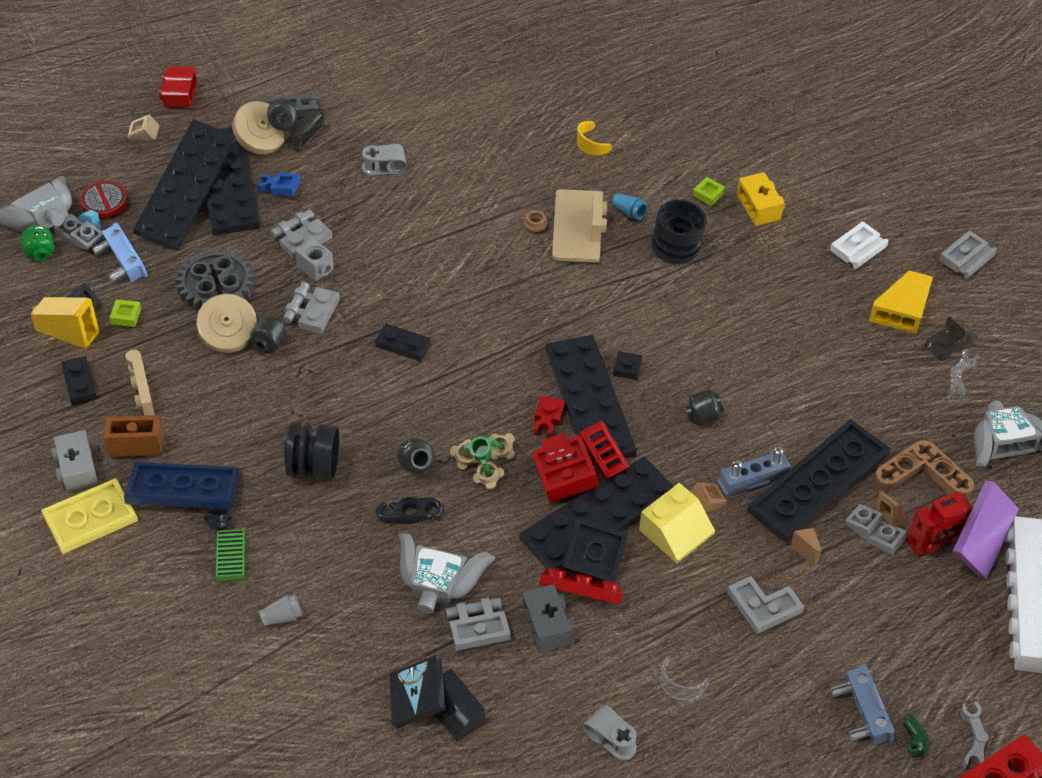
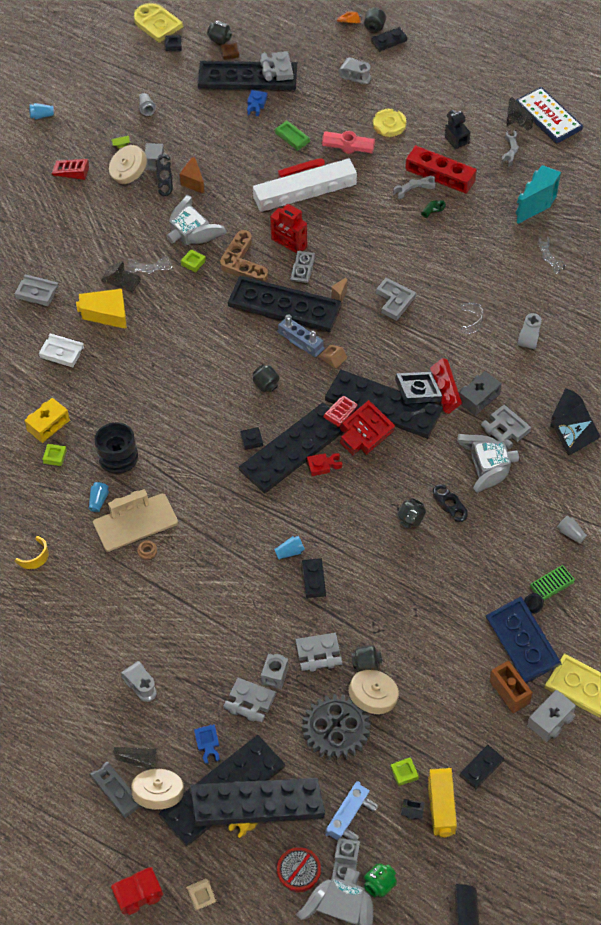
camera: 115 degrees left, 5 degrees up
(92, 217) = (329, 862): medium azure tile -> none
(139, 382) = (461, 716): tan plate -> none
(276, 109) = (145, 765): pearl dark grey head -> none
(306, 451) = (452, 567): black wheel -> none
(452, 335) = (289, 548): none -> dark azure cone
(480, 450) = (394, 470): tan plant -> none
(676, 523) = (366, 361): light yellow slope -> none
(869, 705) = (428, 231): sand blue piece -> none
(891, 510) = (289, 261): medium nougat slope -> none
(944, 416) = (193, 261): none -> lime plate
(985, 529) = (274, 204): medium lavender tile -> none

